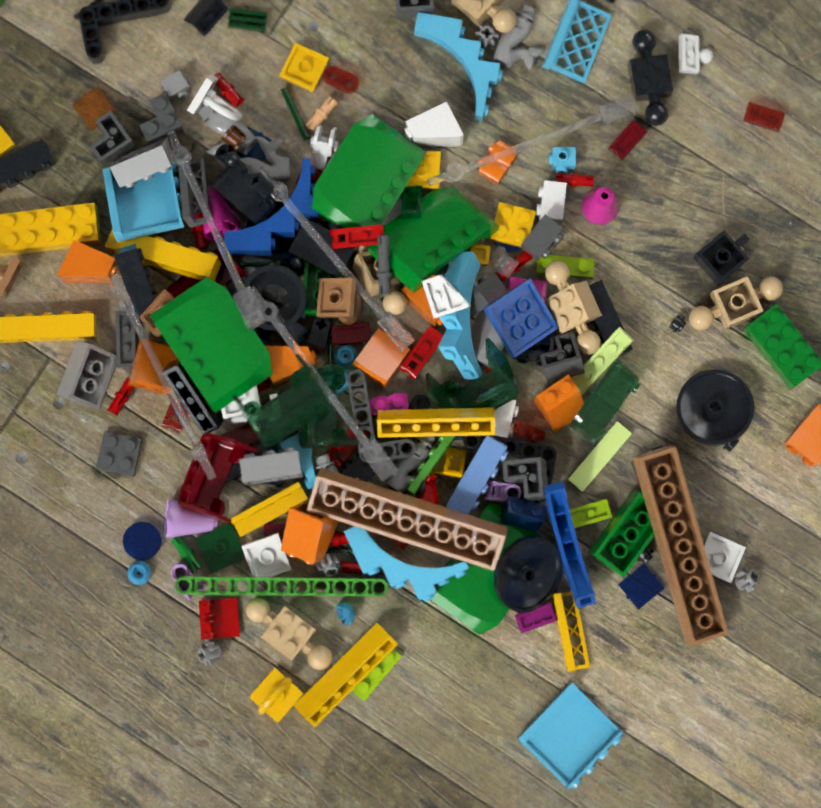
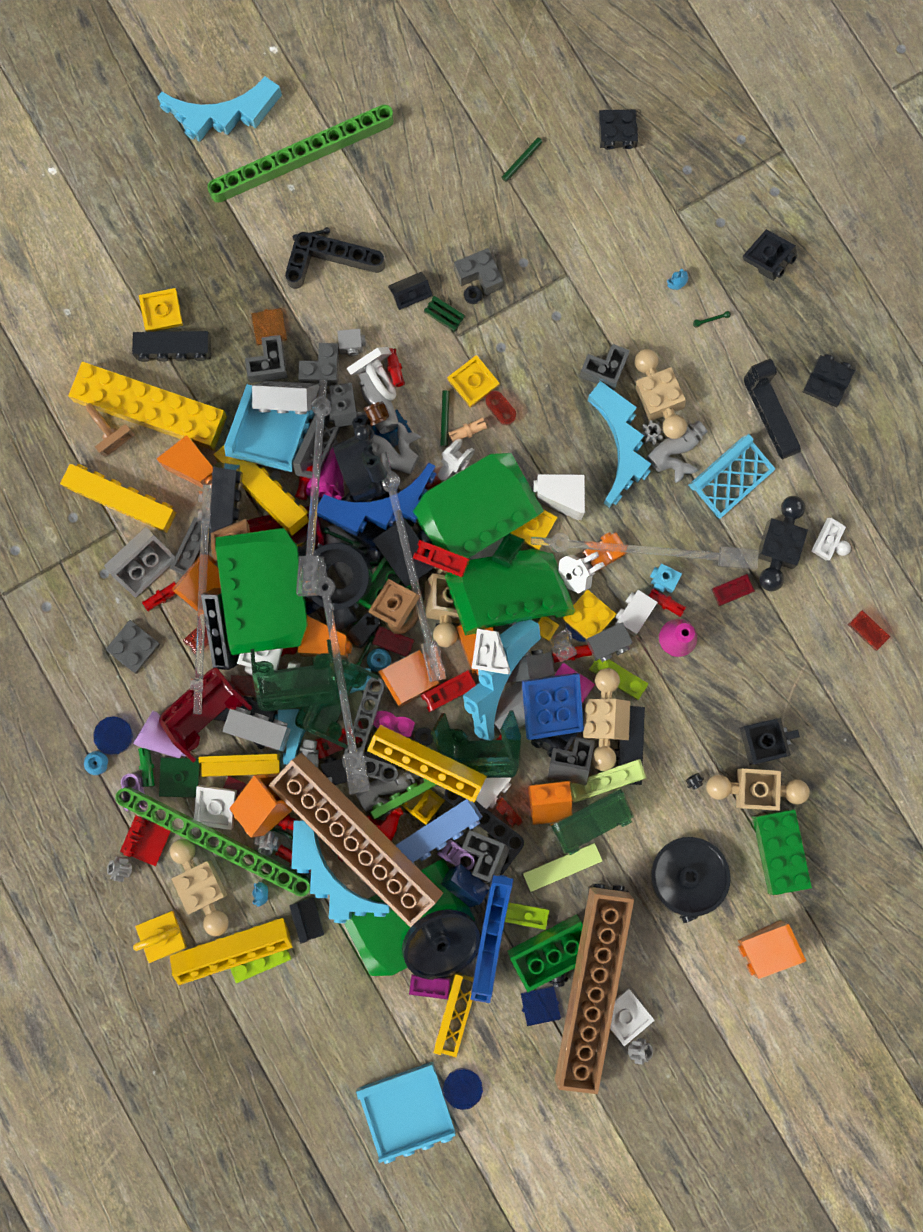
camera: 25 degrees right, 0 degrees up
(198, 144) = (343, 404): none -> dark grey brick
(384, 265) = (451, 596): dark grey pin -> none
(398, 615) = (306, 920): none -> black panel
(485, 188) = (578, 571): none -> white hinge
(609, 691) = (463, 1088): none -> clear blue tile

